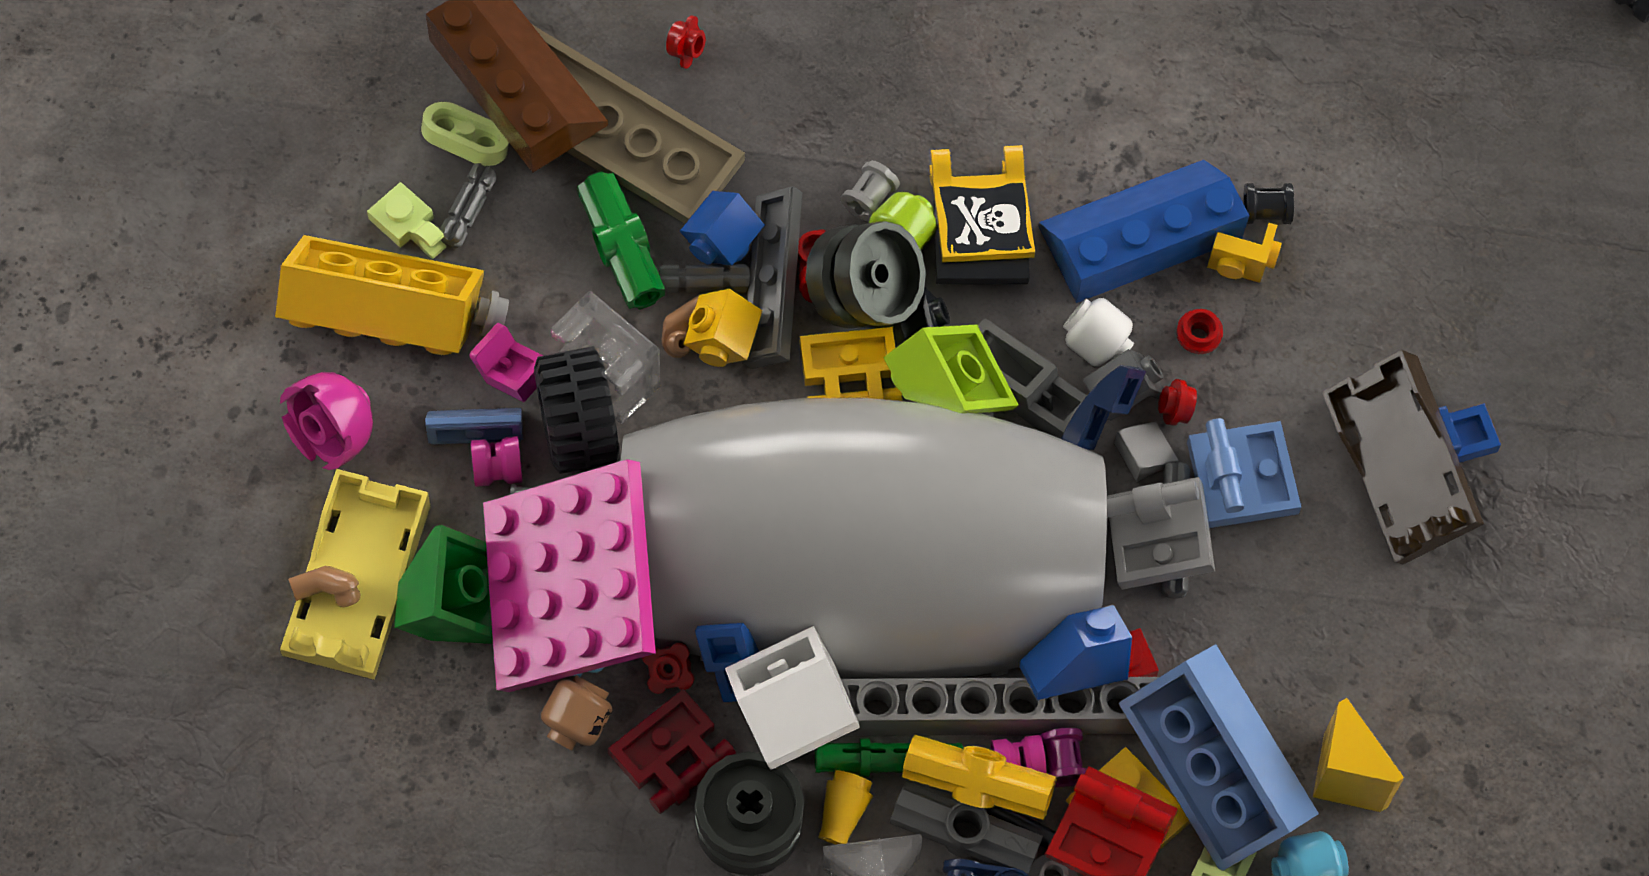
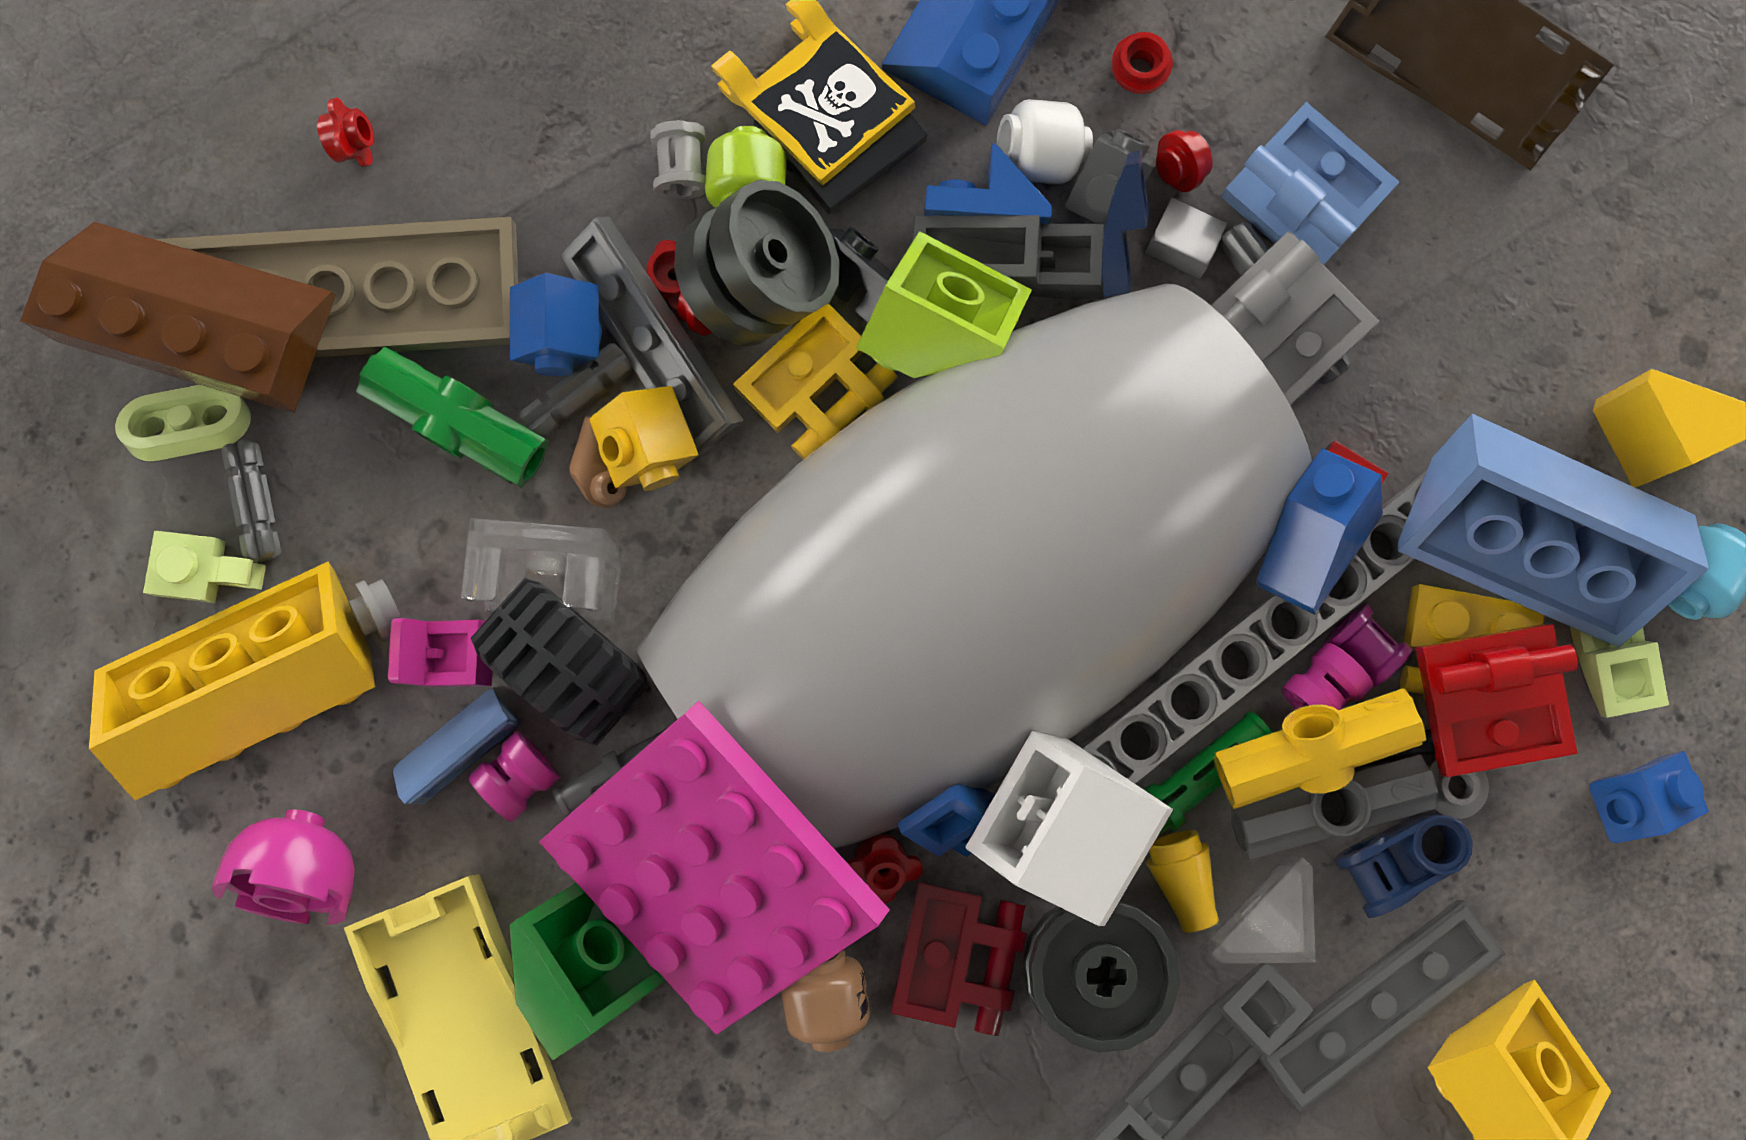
camera: 35 degrees left, 15 degrees up
(327, 580) = (437, 1064): medium nougat arm -> none
(1049, 342) = (1006, 193): none -> blue slope

